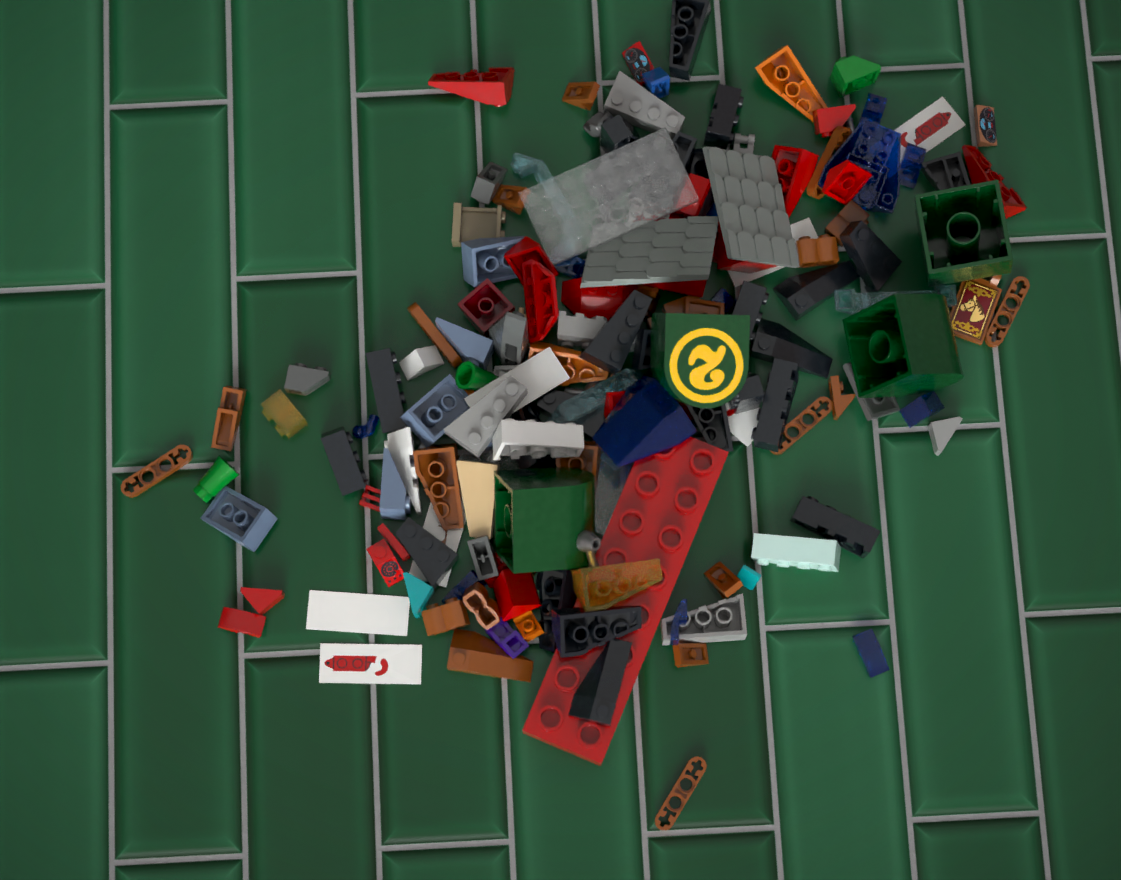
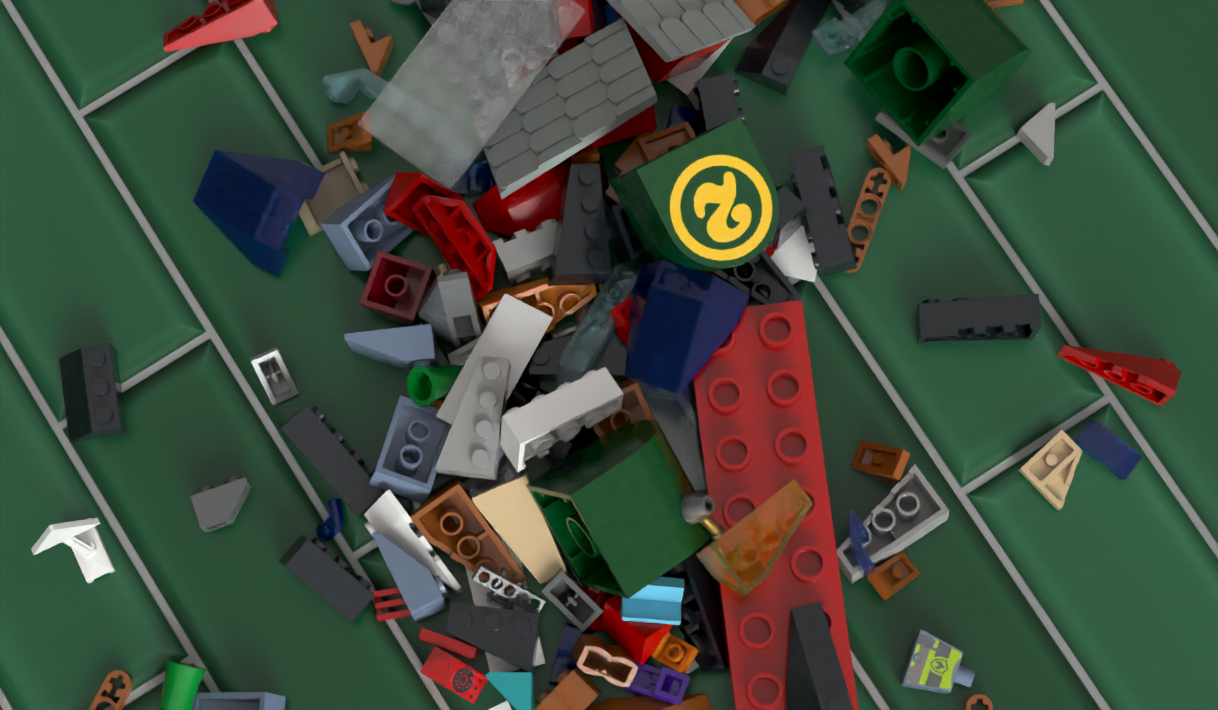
camera: 25 degrees left, 0 degrees up
(210, 353) = (85, 543): none -> white piece
(228, 417) = (150, 605): dark orange slope -> none
(267, 270) = (93, 393): none -> black slope
(284, 414) = (218, 561): clear yellow brick -> none
(381, 319) = (274, 375): none -> light grey slope
(420, 362) = (353, 401): white slope -> none
(430, 207) = (256, 202): none -> clear blue wedge
(434, 335) = (351, 358): dark orange beam -> none
(440, 524) = (513, 596): none -> dark grey piece
(488, 183) = (310, 132): dark grey slope -> none
(532, 587) = (655, 603): none -> medium azure panel
(556, 155) = (375, 53): none -> dark orange slope
(581, 630) = (750, 623): black wedge -> none
(684, 725) = (935, 665): none -> torso
(748, 577) = (908, 439): teal slope -> none
(778, 342) = (786, 132): black wedge -> none
(796, 551) = (948, 377): light aqua wedge -> none
(829, 645) = (1053, 468): none -> tan wing
(916, 616) = (1141, 375): none -> red wedge
(921, 408) = (997, 119): clear blue slope -> none

